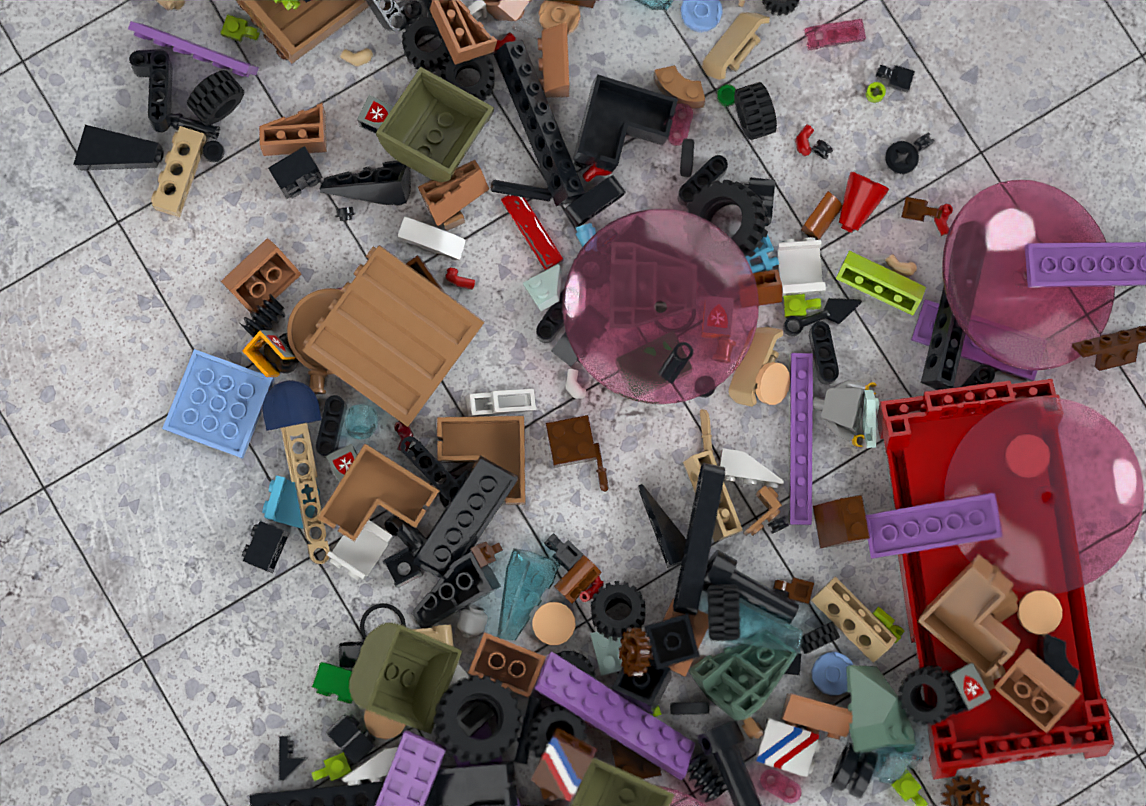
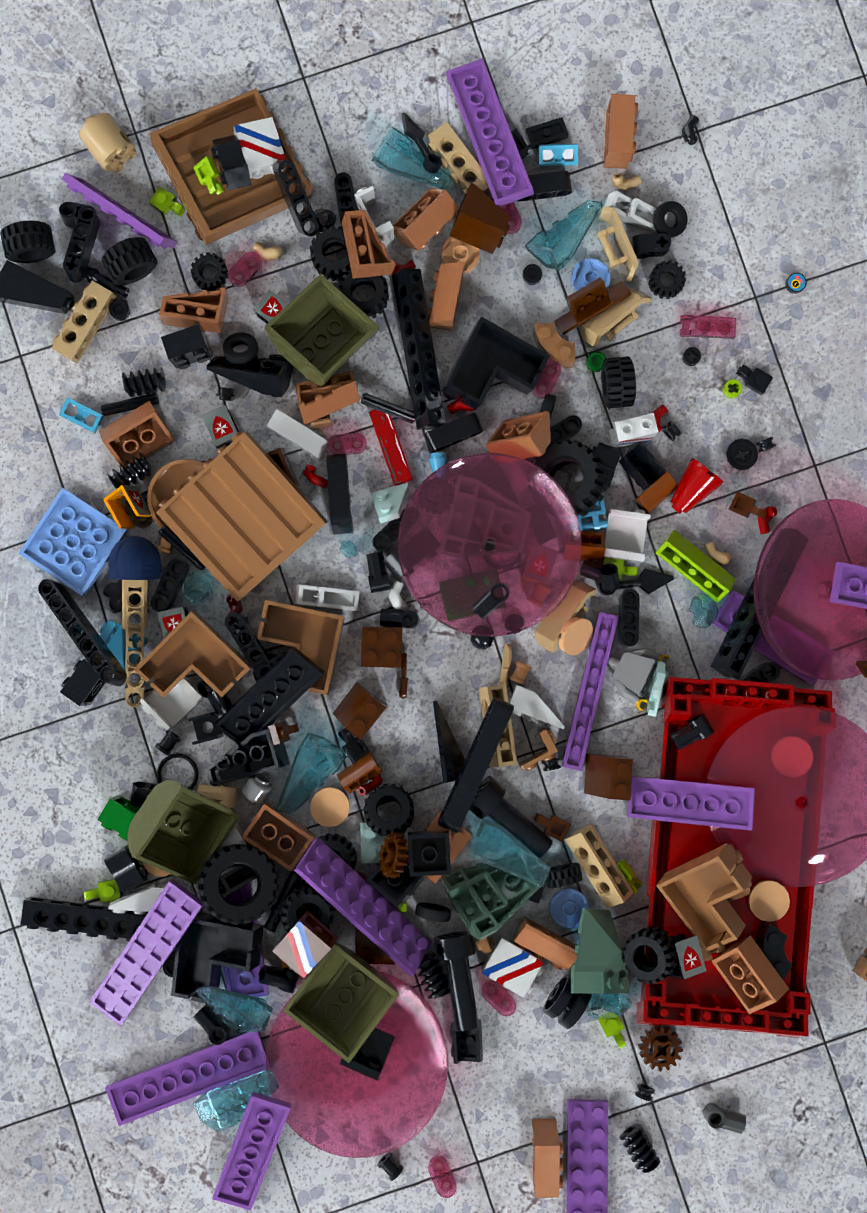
camera: 15 degrees right, 5 degrees up
(104, 101) = (27, 241): none -> black tyre
(197, 269) = (81, 415): none -> medium azure piece
(244, 247) = (128, 404): none -> black axle
(256, 220) = (144, 382): none -> black piece
(259, 497) = (74, 622): none -> black beam
(276, 449) = (114, 591): none -> black plate
(287, 765) = (64, 876): black slope -> none
(291, 82) = (204, 261): none -> black tyre
(336, 80) = (242, 268): none -> clear pink plate
(336, 383) = (175, 541): none -> black axle
(349, 248) = (220, 426): none -> piece
(353, 172) = (240, 357): none -> black tyre
(366, 593) = (168, 742): none -> black bush
(485, 234) = (347, 444): none -> clear pink plate
(490, 291) = (339, 494): none -> black beam
(512, 346) = (348, 549): none -> clear light blue plate
(549, 367) = (377, 576): none -> black piece
(563, 512) = (359, 710): none -> reddish brown slope
(580, 407) = (397, 618): none -> black piece
(639, 20) = (532, 274): none -> black tile
(668, 187) = (522, 436): none -> nougat slope
(675, 411) = (481, 642): none -> black piece
(706, 35) = (590, 302): none -> reddish brown bracket
(723, 436) = (520, 673): none -> medium nougat bush
(723, 612) = (481, 838): black tyre -> none
(782, 157) = (633, 431): none -> white panel
(786, 312) = (605, 574): none -> black piece
(800, 192) = (642, 466): none -> black bracket
(829, 63) = (696, 352): none -> black bush
(900, 326) = (704, 610): none -> clear light blue hair
(919, 451) = (697, 729): none -> black piece

